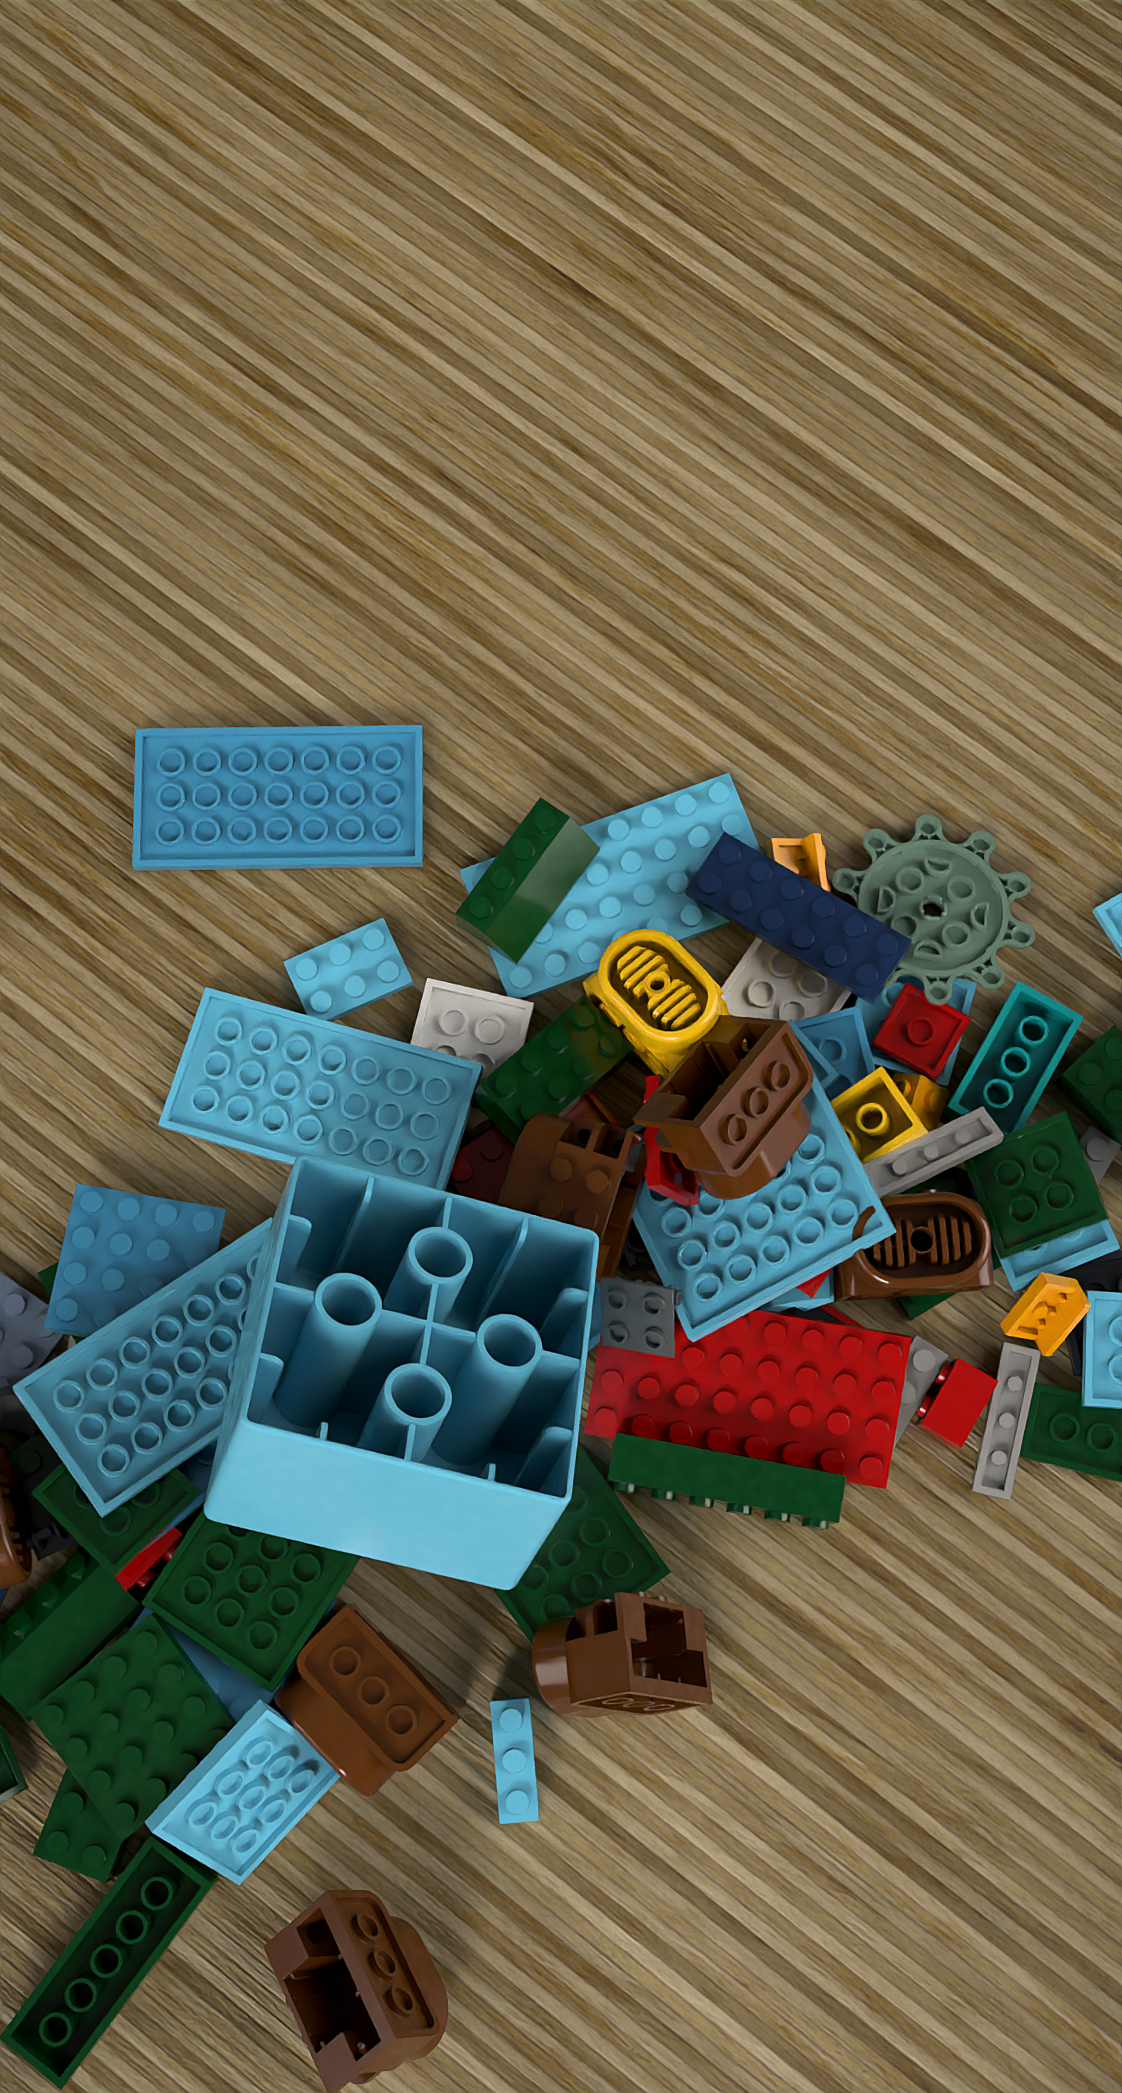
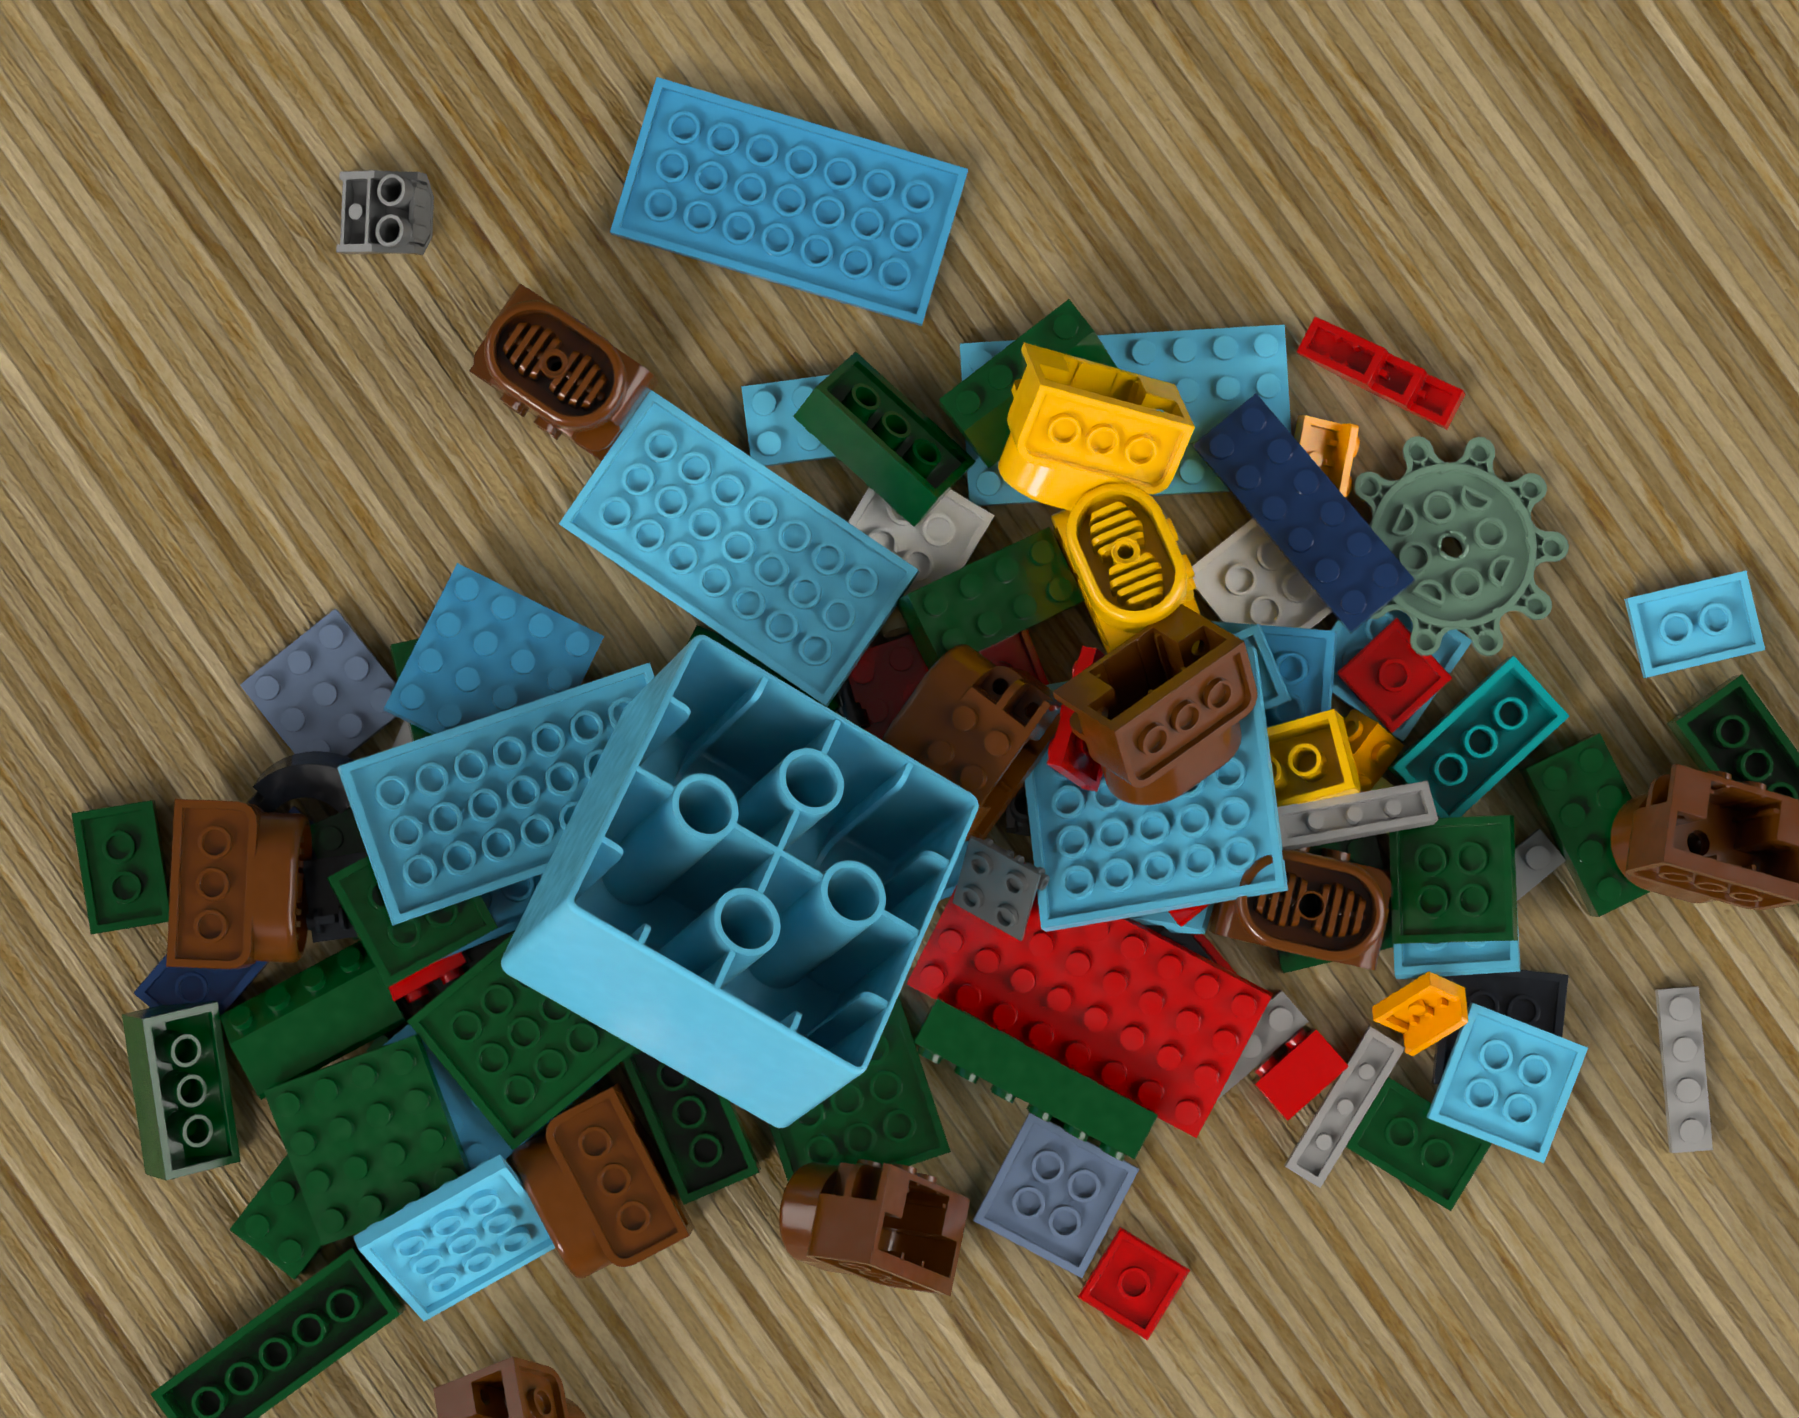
camera: 20 degrees right, 10 degrees up
(122, 992) = (583, 400): none -> reddish brown brick
(418, 965) = (884, 438): none -> dark green slope
(429, 1619) = (692, 1127): none -> dark green brick
(514, 1760) = (735, 1286): medium azure arch -> none
(589, 895) = (1090, 428): none -> yellow brick
(777, 1581) = (1055, 1195): none -> sand blue plate
(822, 788) = (1380, 372): none -> red slope
(872, 1641) = (1133, 1283): none -> red tile

